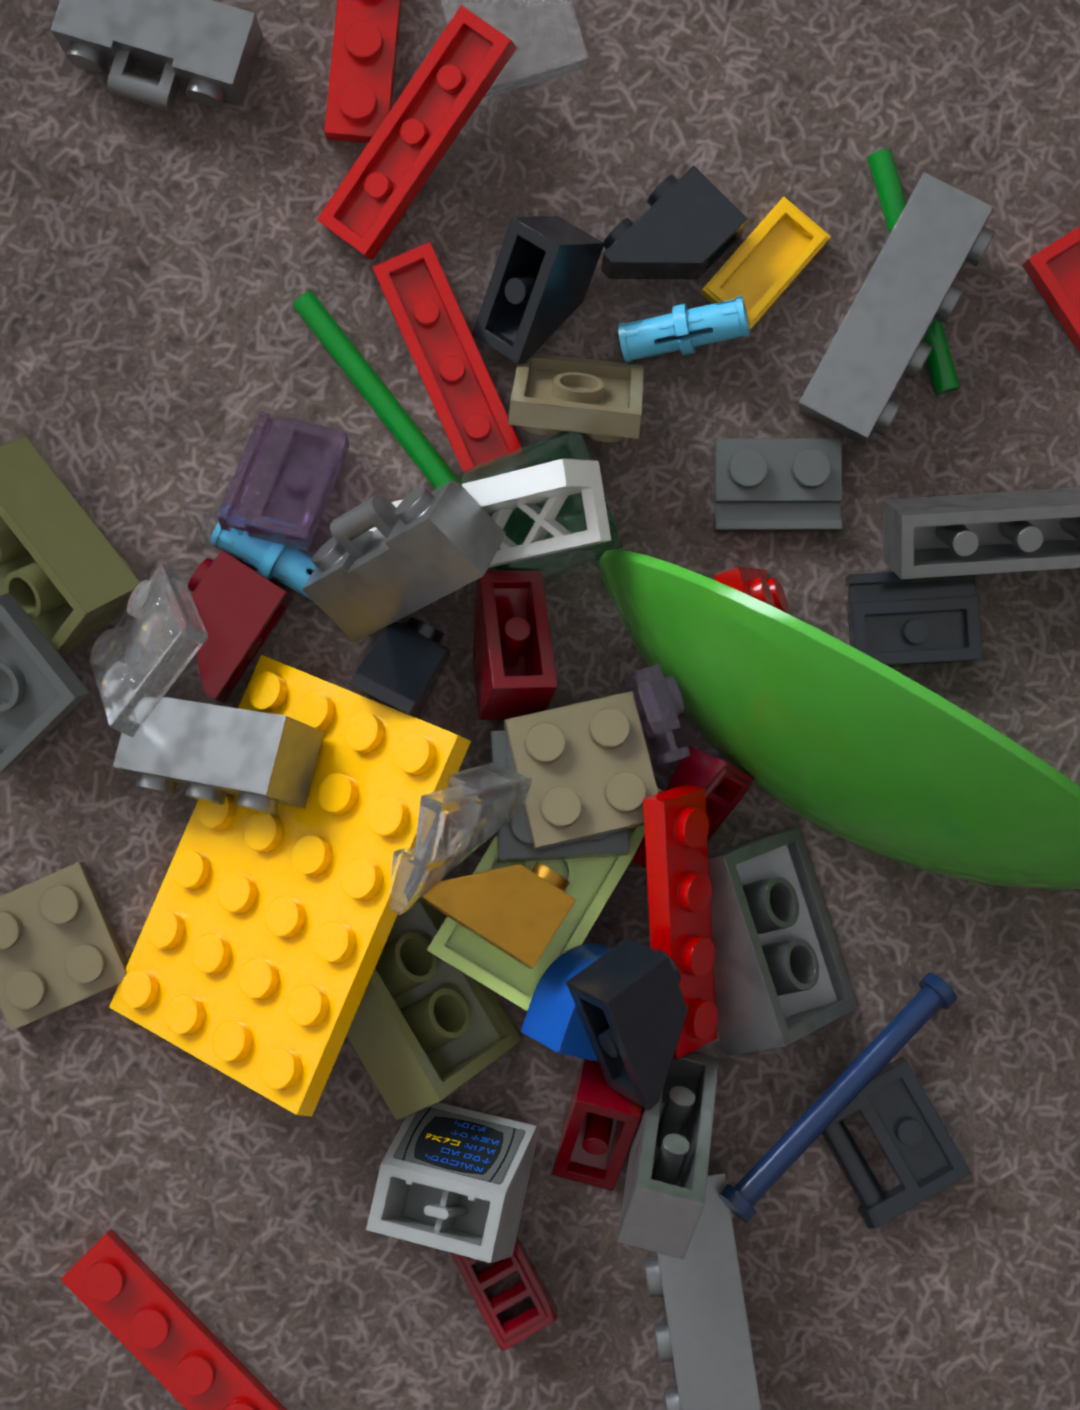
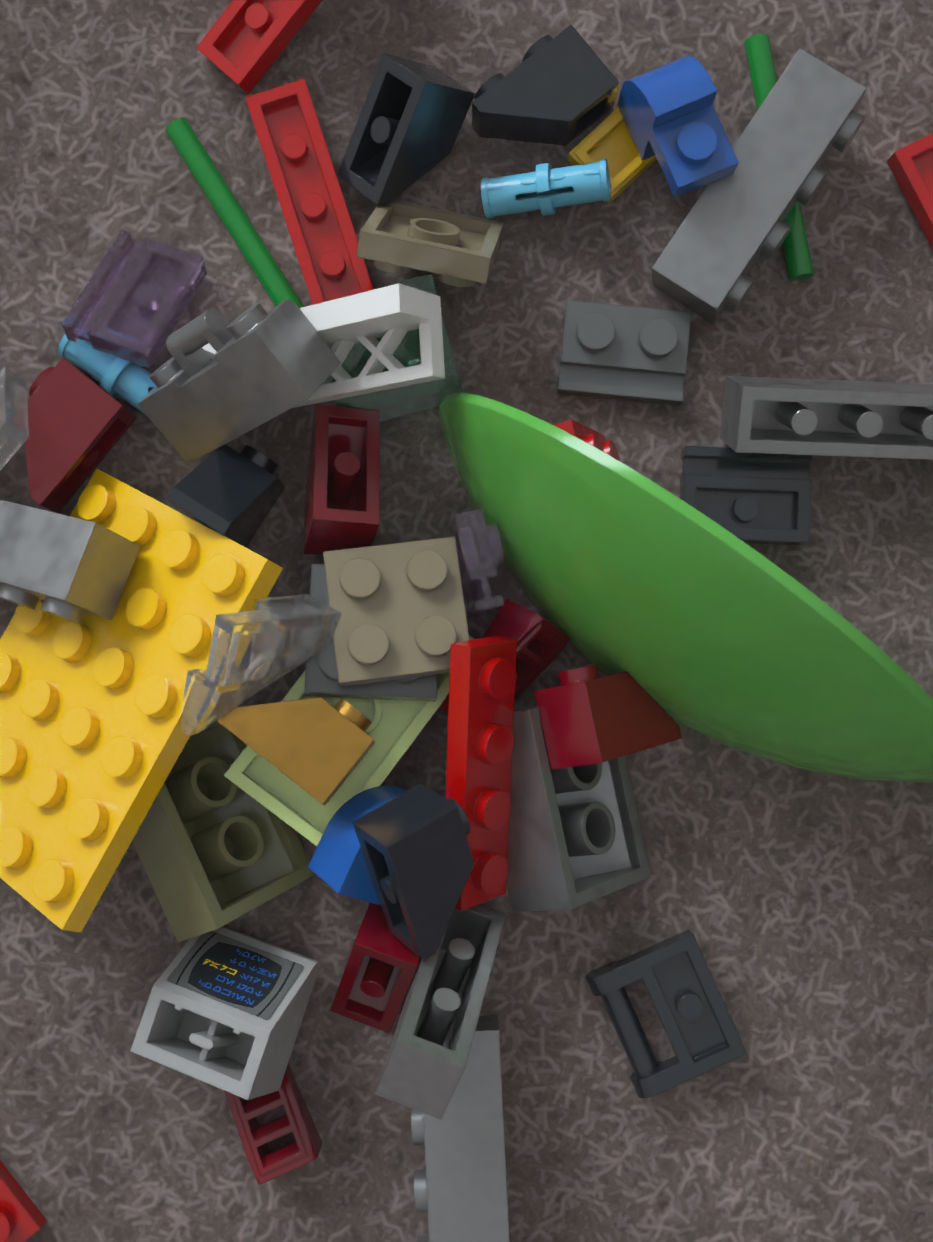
camera: 10 degrees right, 0 degrees up
(794, 856) = (600, 718): none -> dark red slope
(797, 1139) = (613, 970): dark blue bar -> none
(807, 251) = (676, 121): none -> blue brick

